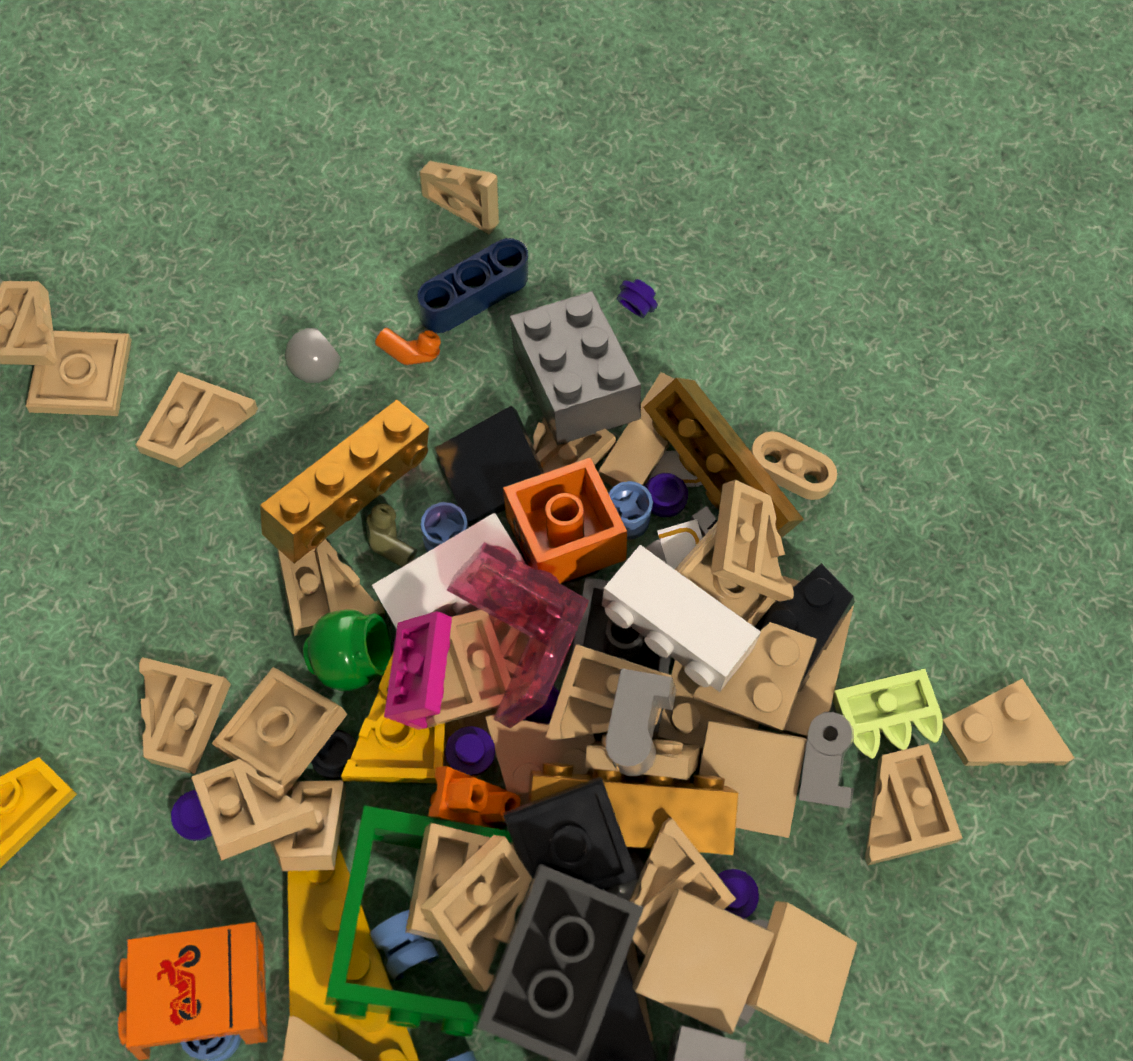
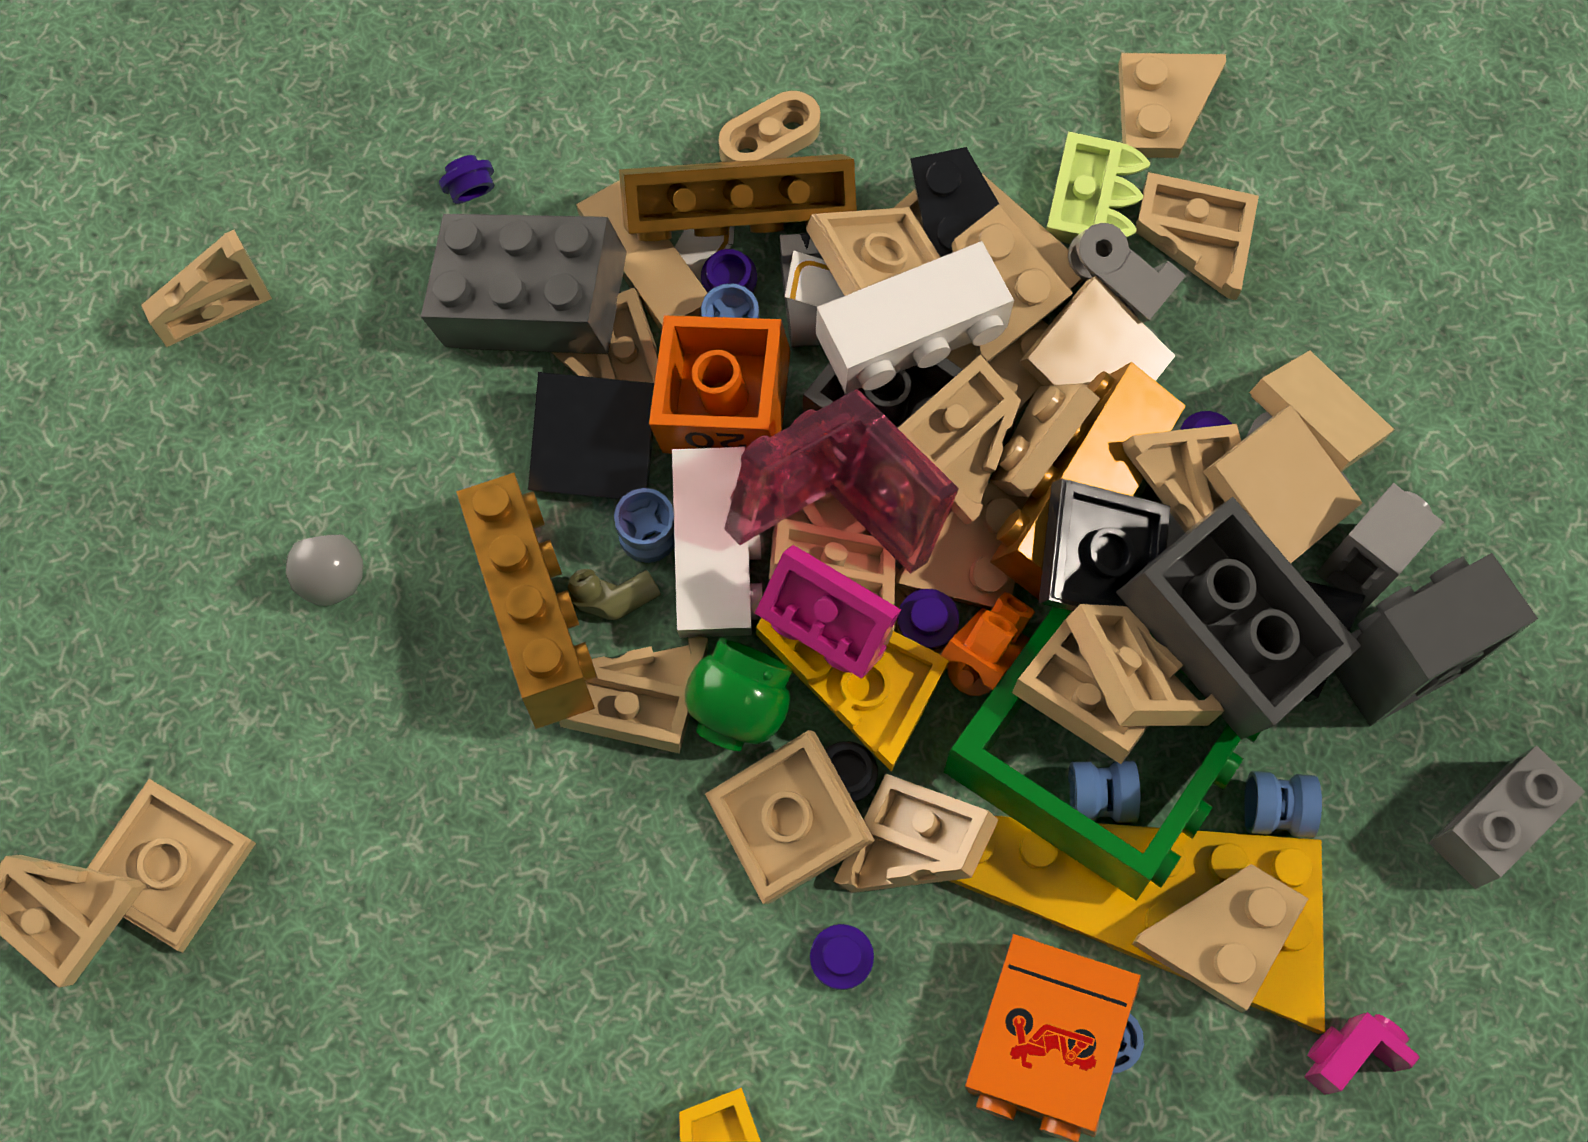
camera: 60 degrees left, 5 degrees up
(179, 713) = (704, 926): tan wing -> none
(192, 420) = (323, 749): tan wing -> none
(247, 808) = (878, 887): tan wing -> none
(409, 352) = (382, 456): orange arm -> none
(481, 269) = (334, 321): dark blue beam -> none
(634, 719) = (1017, 412): light grey leg -> none
(749, 542) = (857, 207): tan wing -> none

